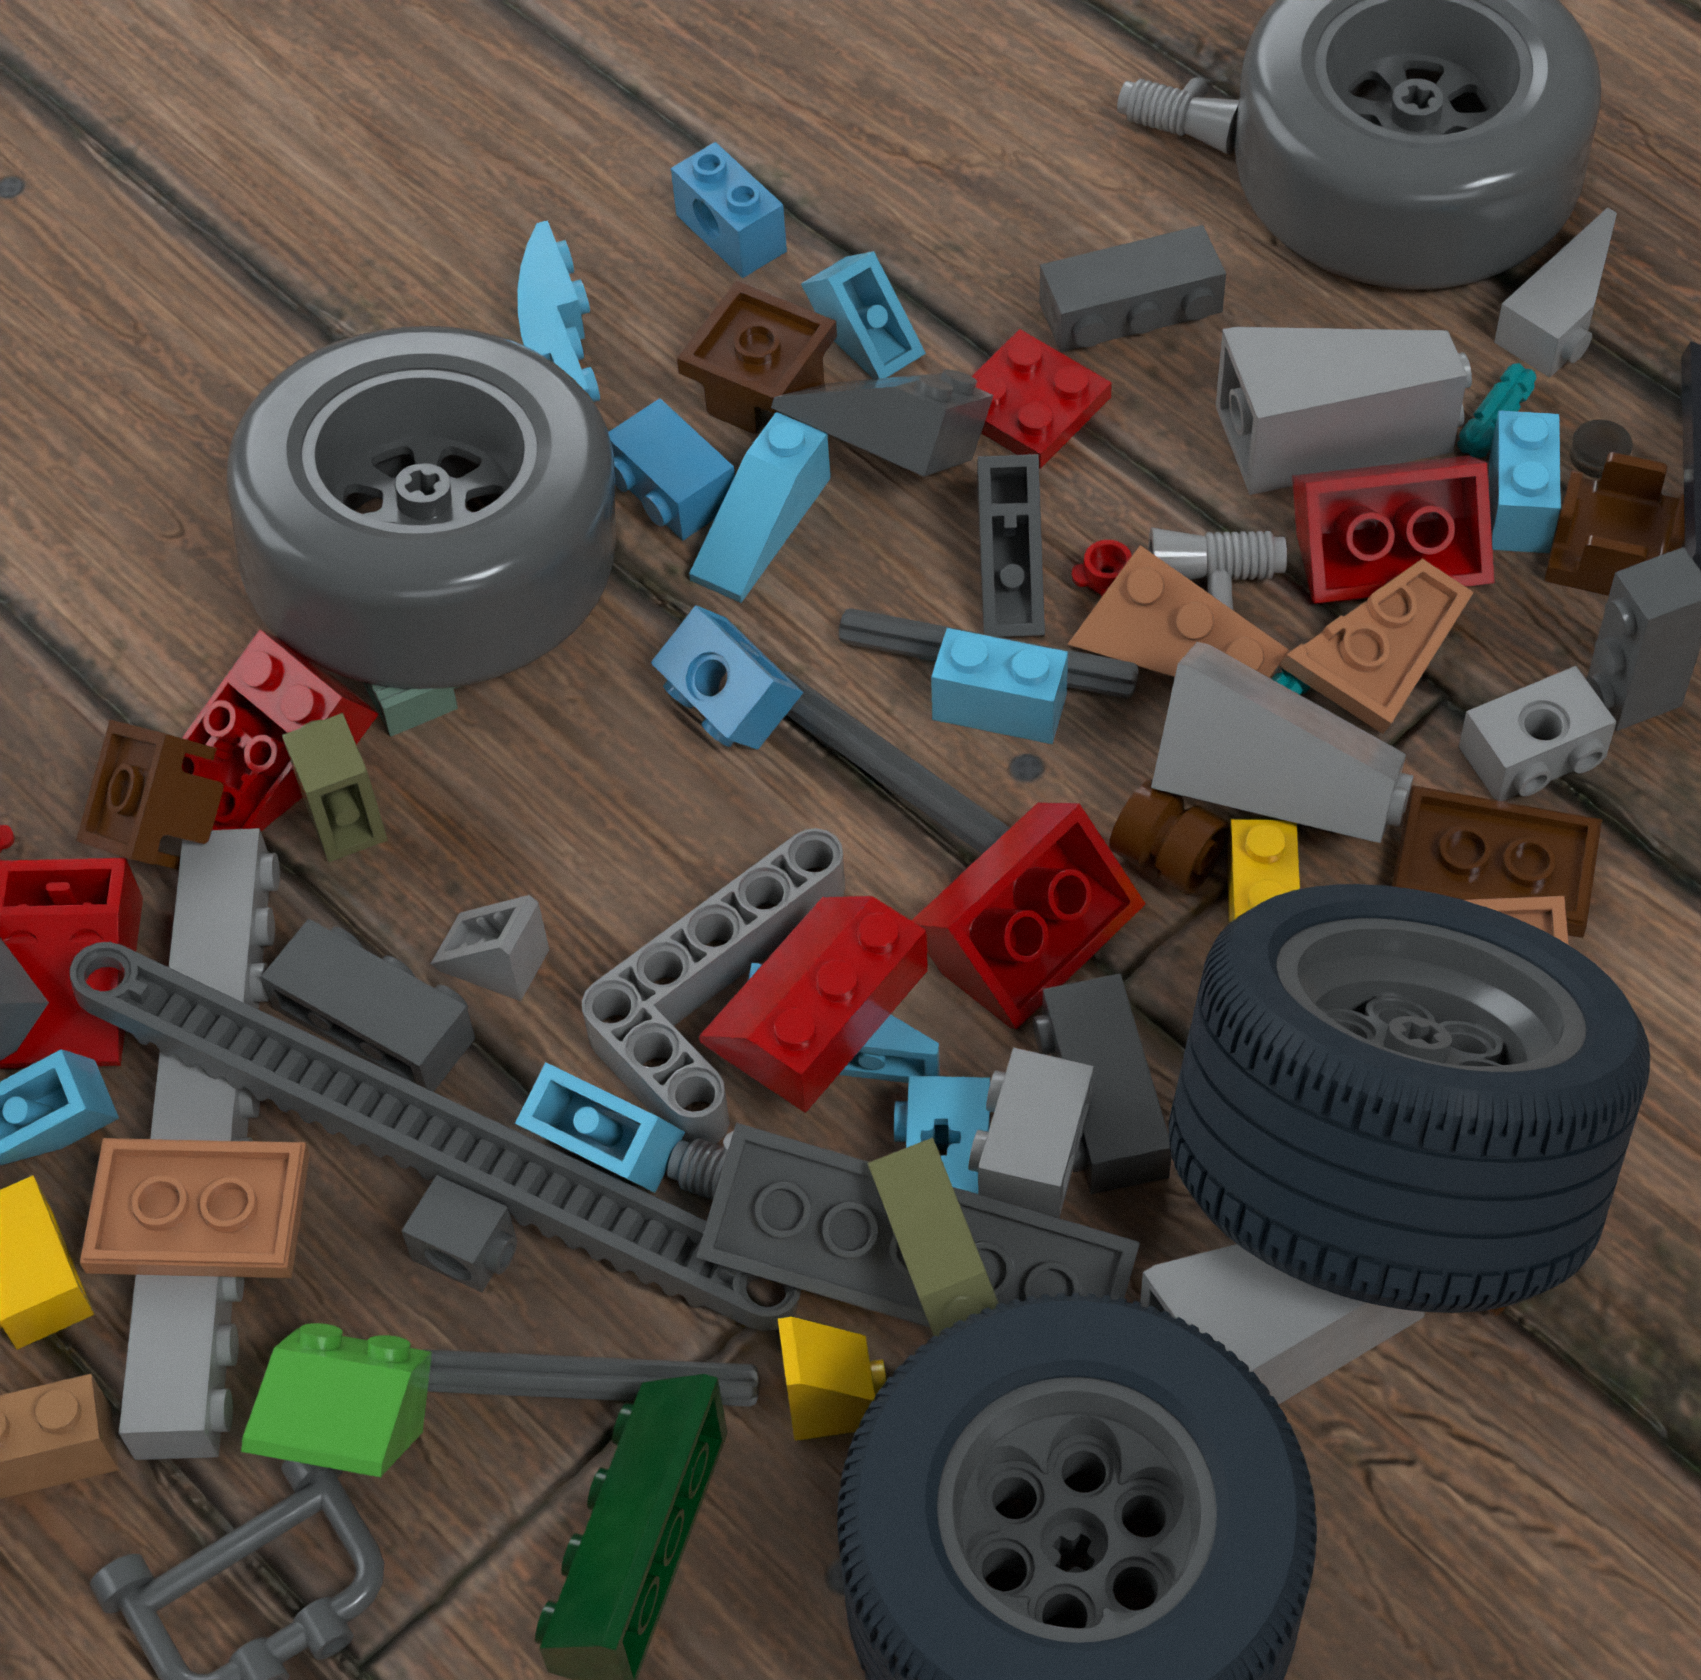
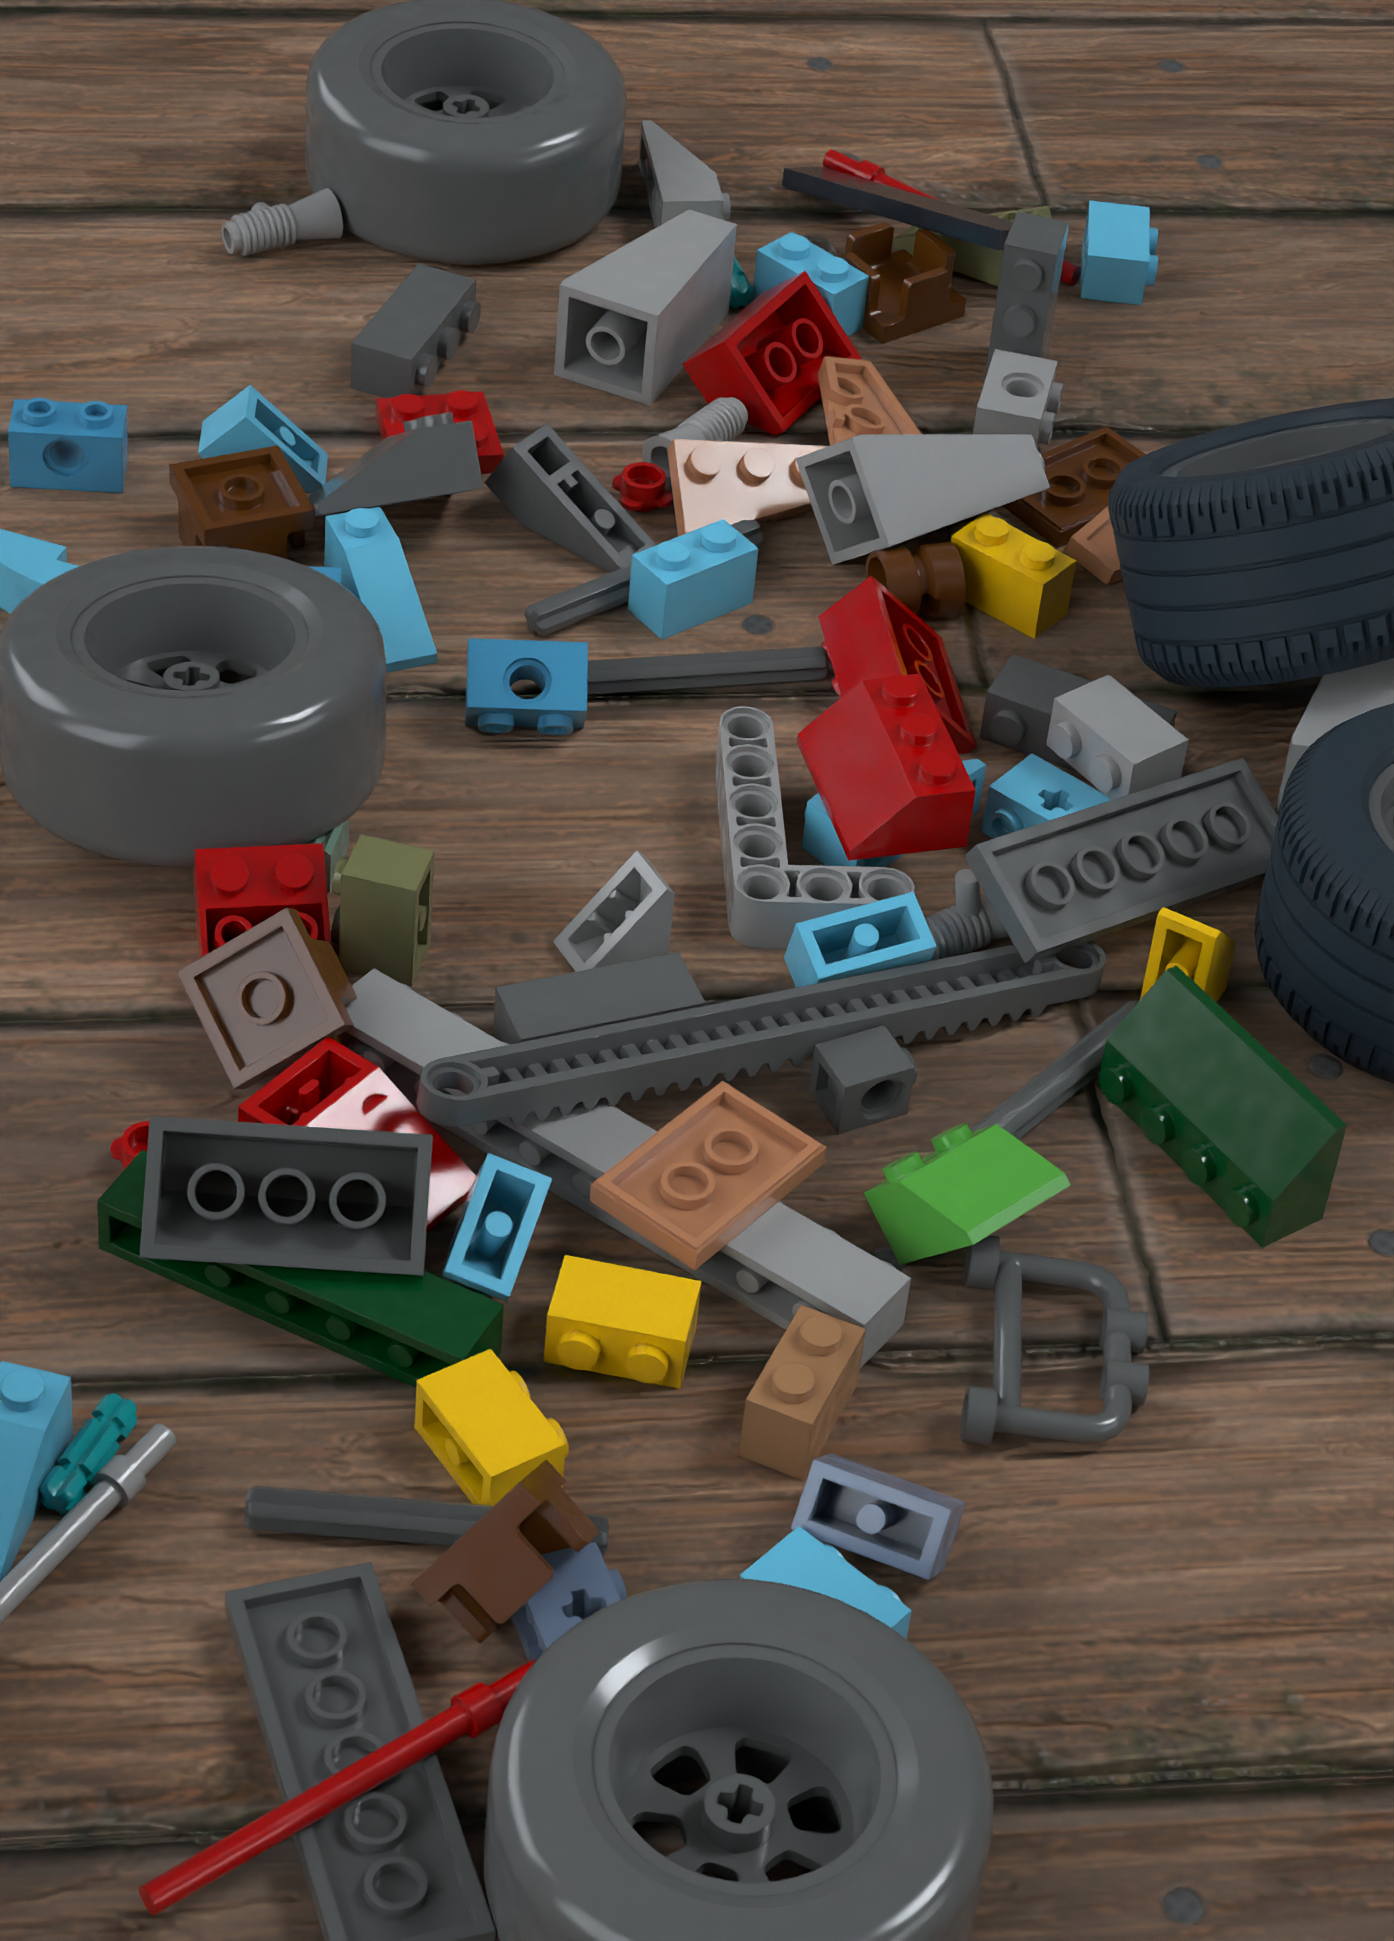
camera: 60 degrees left, 15 degrees down
(933, 1235) = (1177, 832): olive slope -> none

